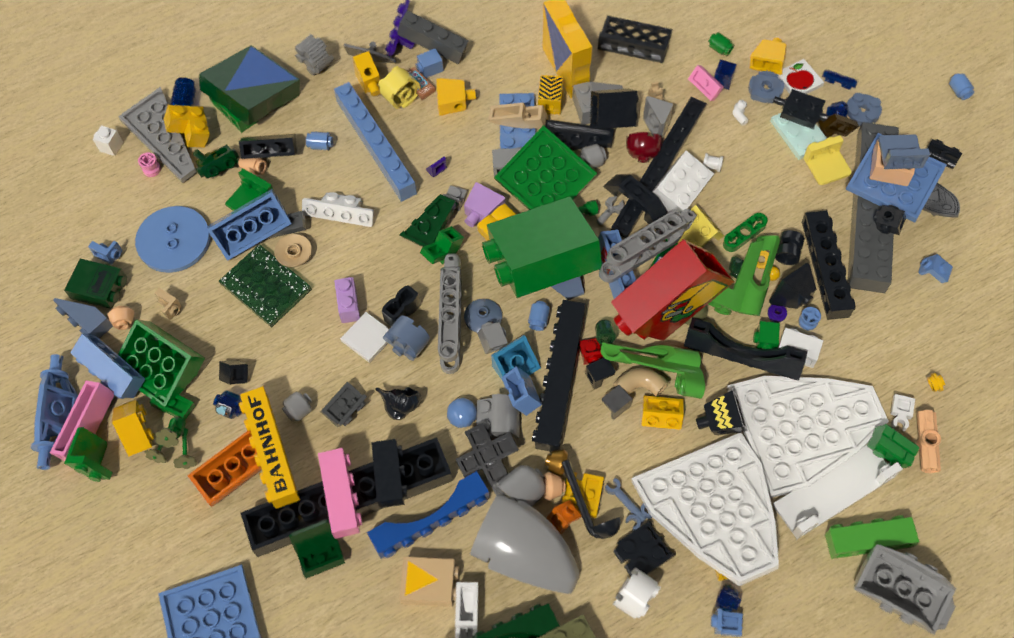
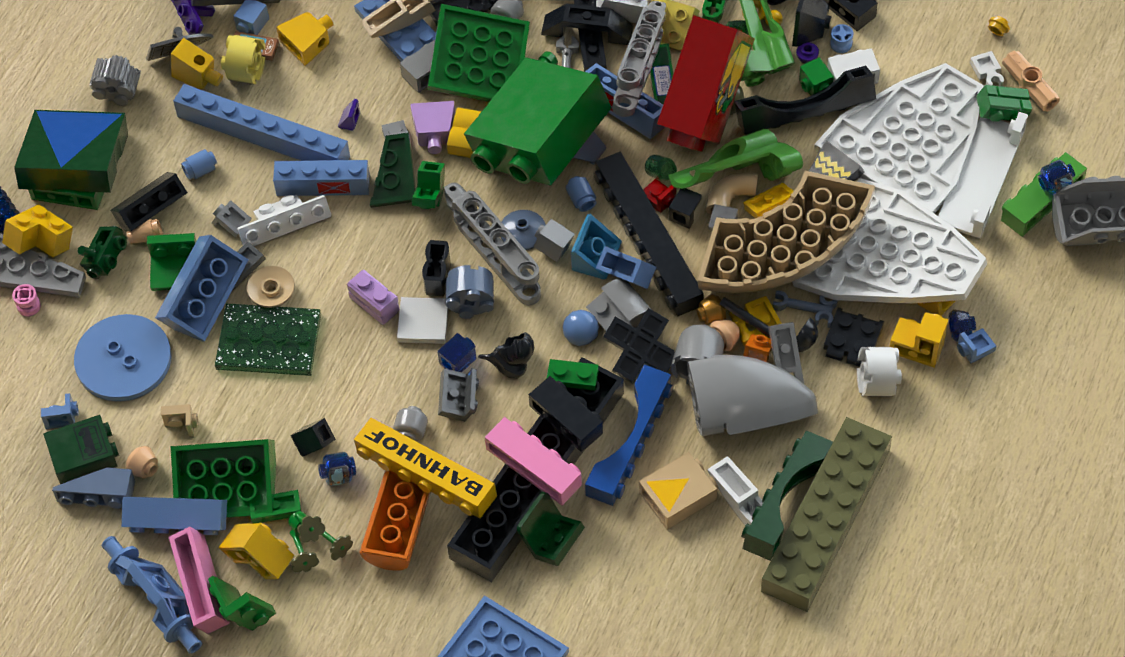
camera: 35 degrees left, 5 degrees down
(308, 187) = (230, 217): none -> light grey bracket
(367, 376) = (457, 353): none -> clear blue brick
(383, 197) = (321, 177): none -> medium blue brick
(418, 446) = (574, 374): none -> green plate
(580, 531) = (786, 349): none -> light grey plate
(642, 449) = (787, 239): none -> tan brick
(686, 589) = (920, 341): none -> yellow brick
(887, 534) = (1056, 176): none -> clear blue head

